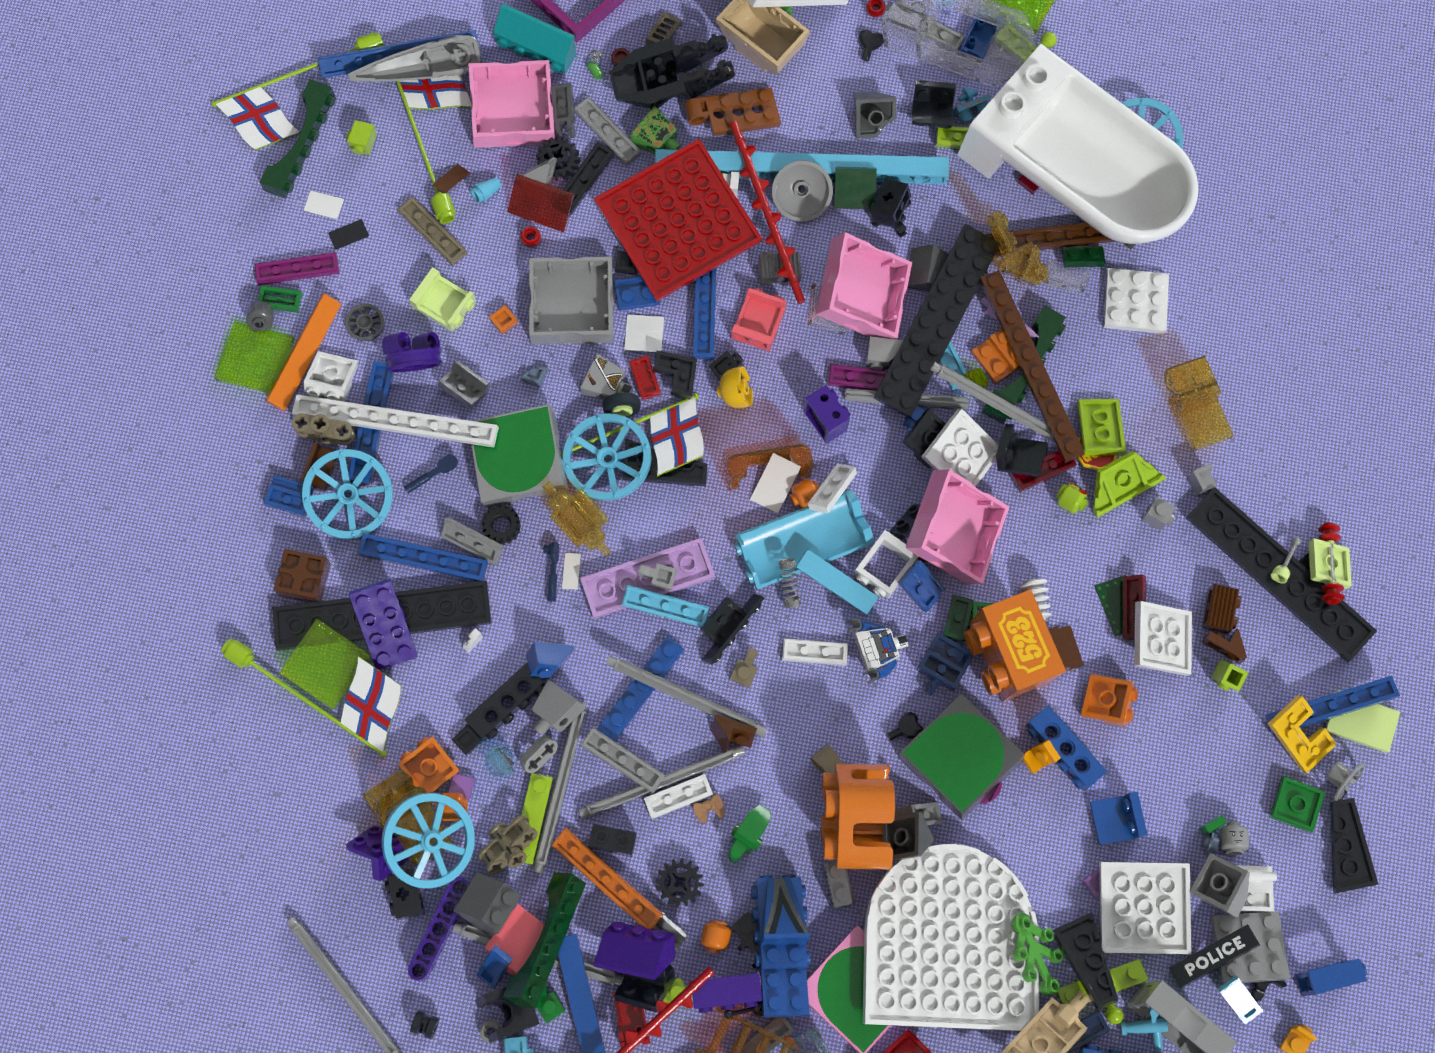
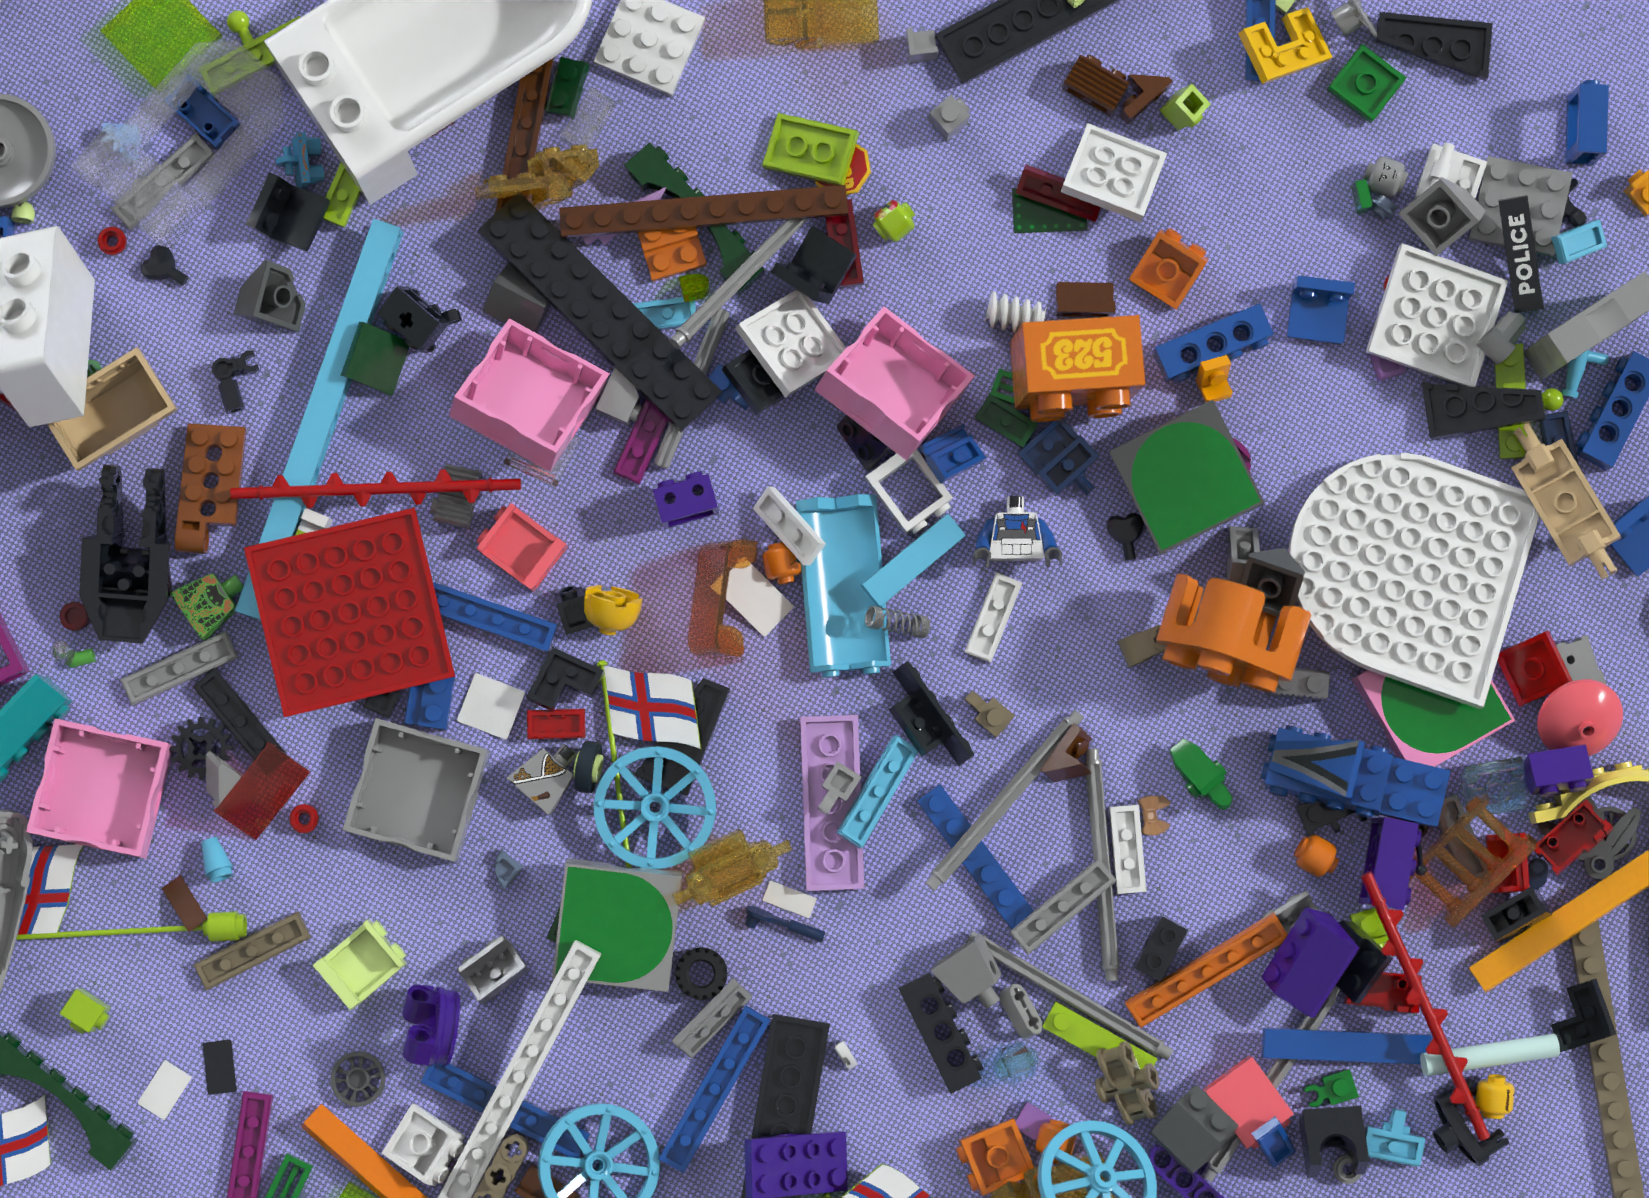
camera: 75 degrees left, 10 degrees up
(444, 466) = (598, 1026): dark blue piece -> none
(467, 740) = (973, 1098): black tile -> none
(503, 319) = (414, 889): orange plate -> none
(529, 982) = (1311, 1102): dark green arch -> none
(547, 658) = (905, 965): blue slope -> none
(563, 109) = (130, 719): dark grey hinge -> none
(650, 39) = (69, 562): dark tan slope -> none
(671, 889) = (1241, 893): black gear -> none
(802, 204) = (373, 434): light grey dish -> none
(815, 101) = (224, 371): none -> black bar
(1024, 929) = (1419, 473): bright green plant -> none
(1123, 481) = (893, 148): lime wing -> none
(1145, 960) = (1500, 339): none -> light grey piece

